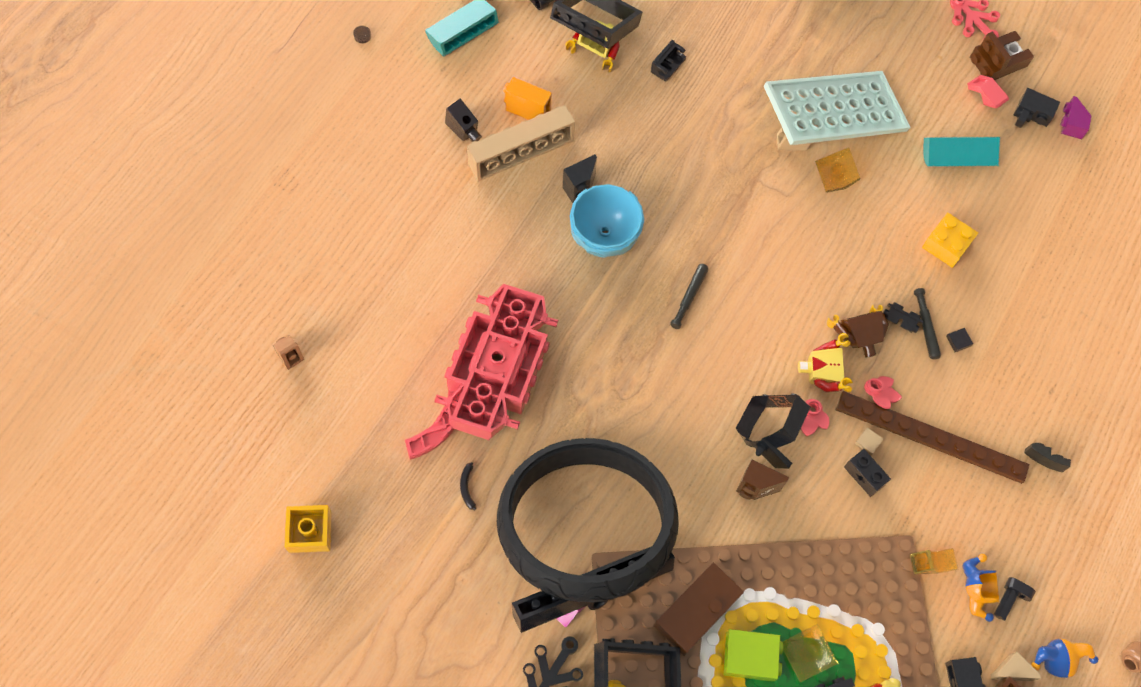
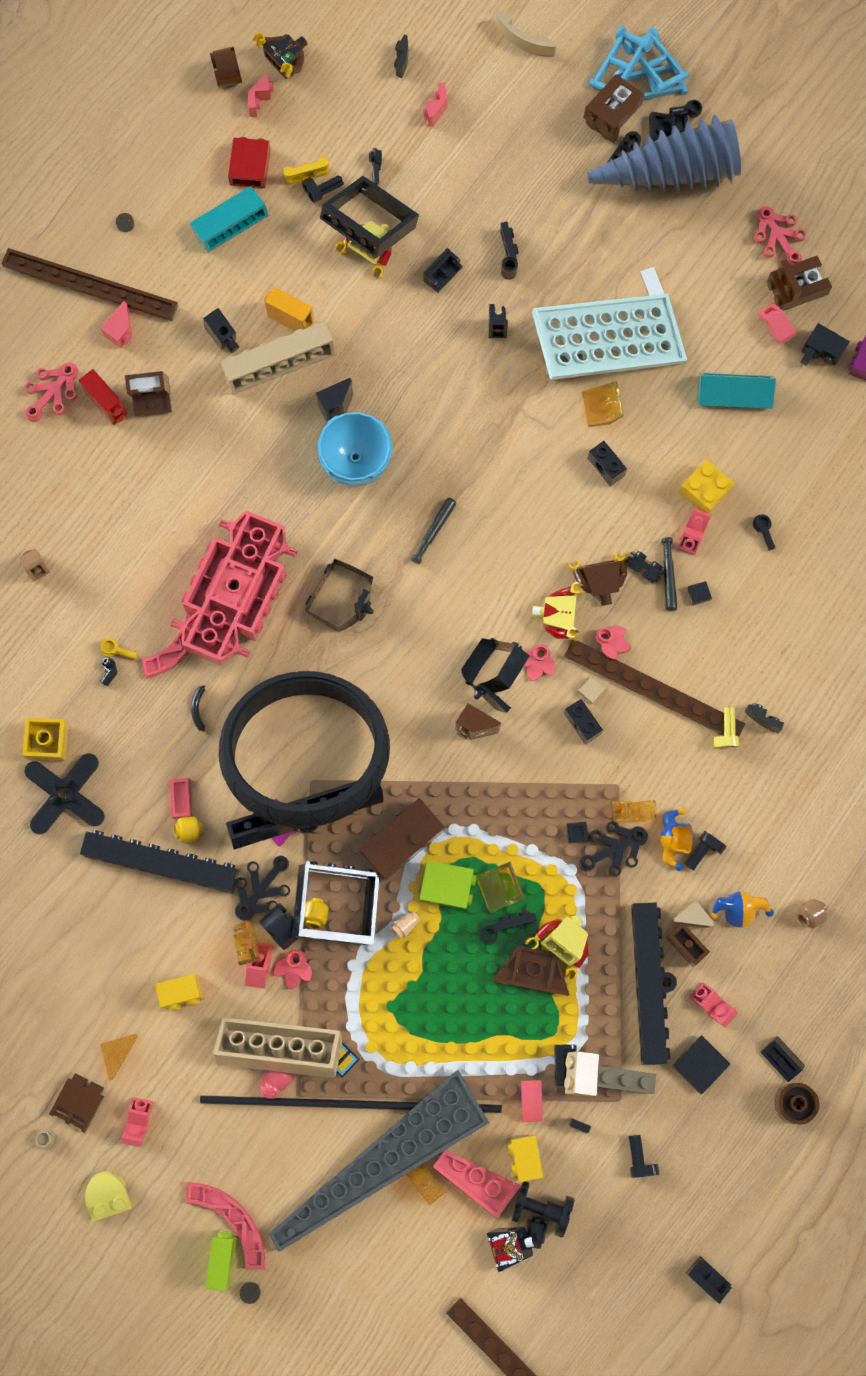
camera: 10 degrees right, 10 degrees up
(298, 185) = (52, 389): none -> coral plant
(331, 88) = (89, 284): none -> reddish brown plate
(342, 593) = (74, 800): none -> black piece
(351, 187) = (103, 397): none -> red brick
(361, 124) = (118, 326): none -> coral slope
(371, 430) = (110, 647): none -> yellow plate
(373, 454) = (110, 669): none -> black arm
(396, 179) = (149, 393): none -> reddish brown brick
(439, 653) = (160, 862): none -> black brick
(456, 582) = (180, 798): none -> coral tile
(467, 615) = (188, 829): none -> yellow head
(629, 371) = (362, 606): none -> black piece
(728, 101) = (497, 323): none -> black hinge
(730, 41) = (511, 252): none -> black plate
(850, 223) = (607, 463): none -> black brick
(863, 62) = (652, 282): none -> white sticker
(879, 588) = (577, 832): none -> black tile
(923, 601) = (616, 846): none -> black plant
(944, 281) = (694, 531): none -> coral slope
(1009, 271) = (762, 525): none -> black plate
(1018, 480) = (729, 739): none -> light yellow piece

